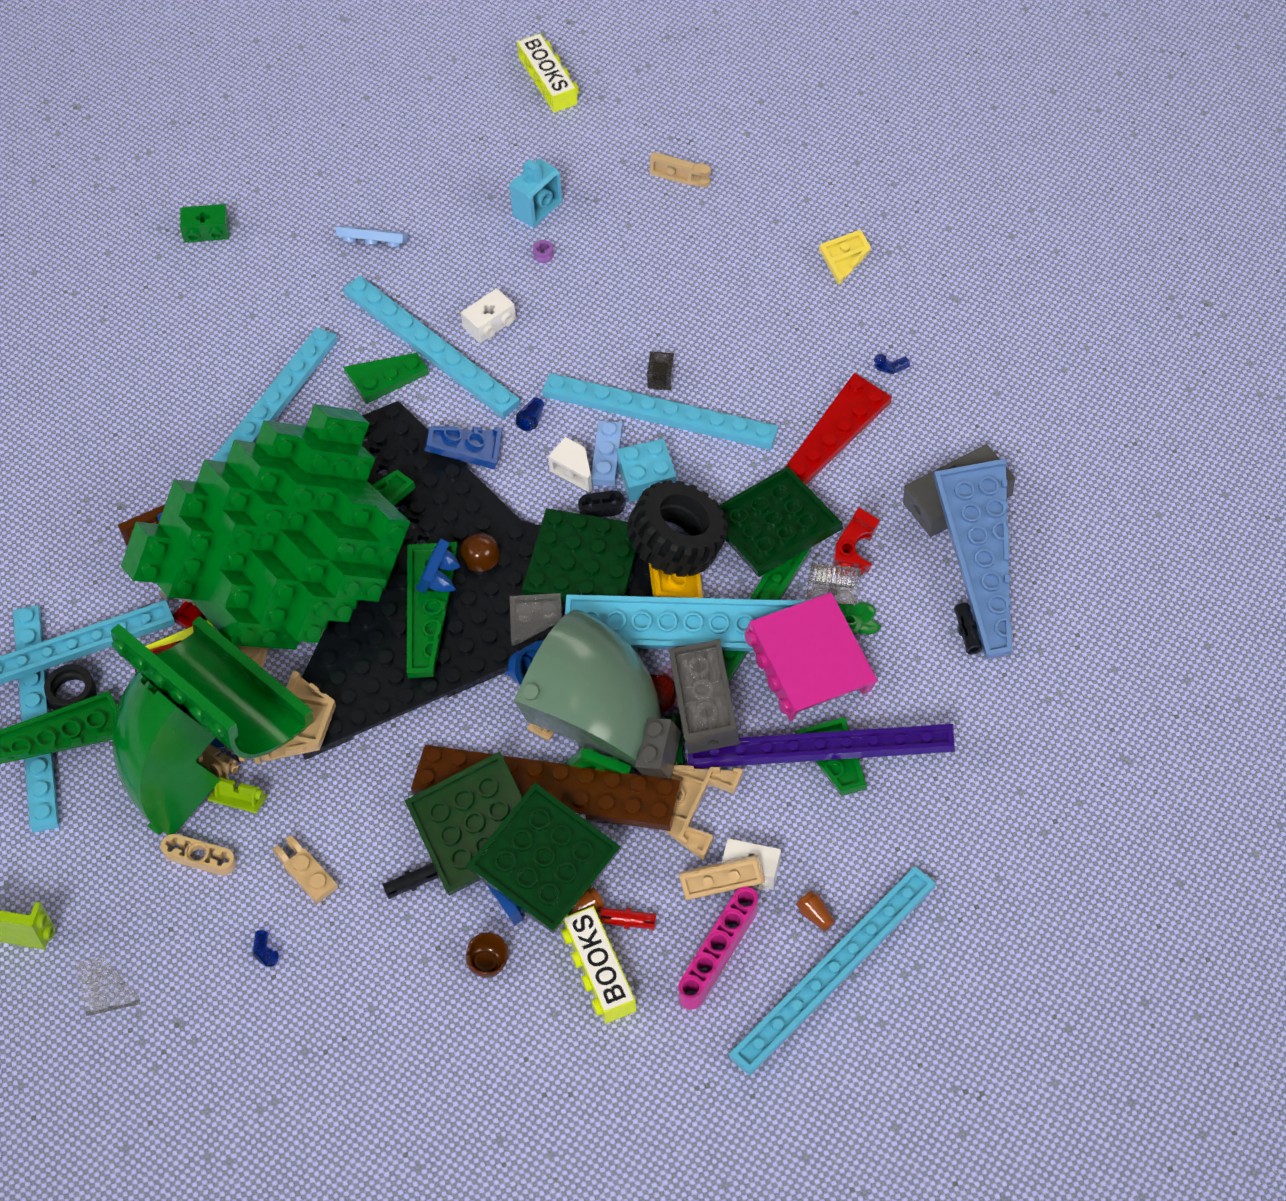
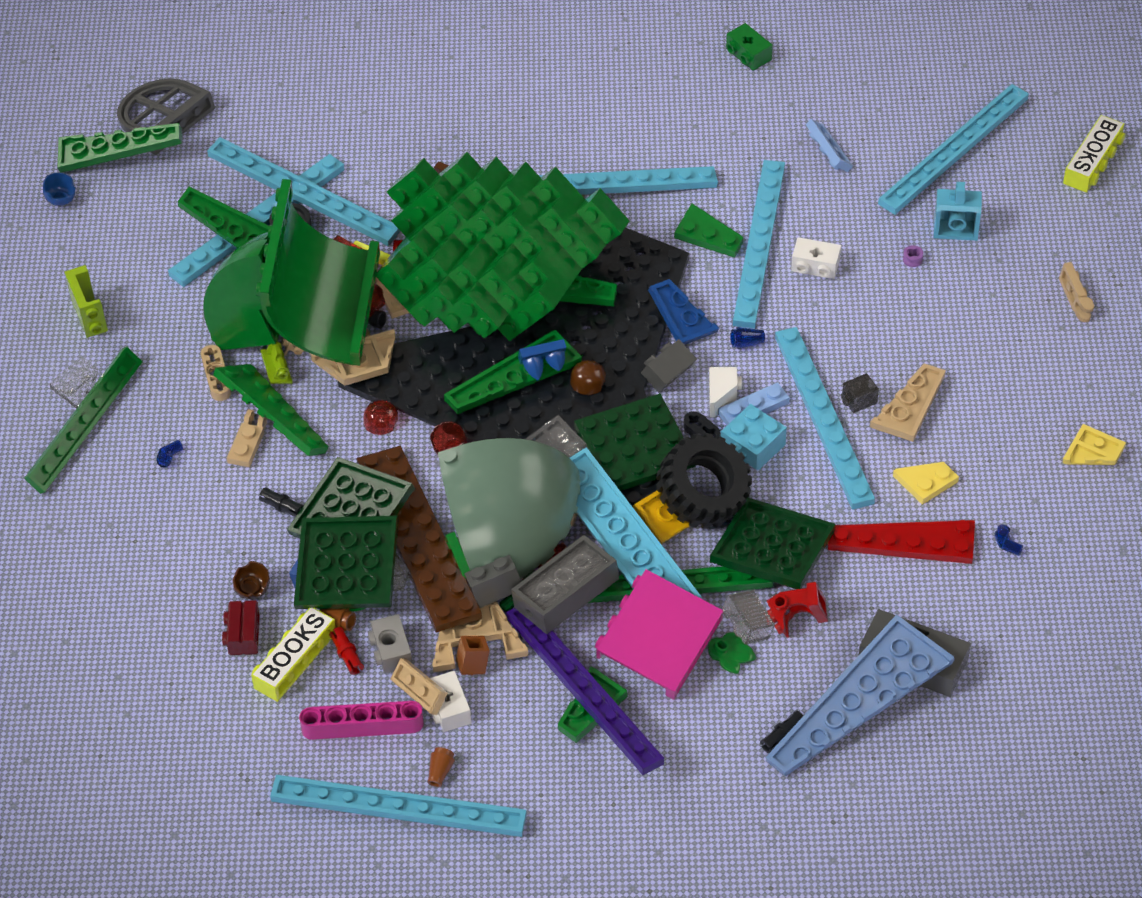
camera: 55 degrees right, 5 degrees down
(158, 1006) = (83, 420): none -> green plate
(233, 832) = (271, 406): none -> green wing
(375, 743) = (380, 417): none -> clear red hair
(455, 158) = (953, 149): none -> medium azure plate
(456, 701) = (447, 436): none -> clear red hair
(516, 486) = (668, 365): none -> dark grey brick
(534, 993) = (242, 627): none -> dark red brick
(640, 865) = (389, 631): none -> light grey brick
(701, 346) = (910, 406): none -> tan wing
(718, 814) = (472, 655): none -> dark orange brick
(784, 381) = (926, 480): none -> light yellow wing

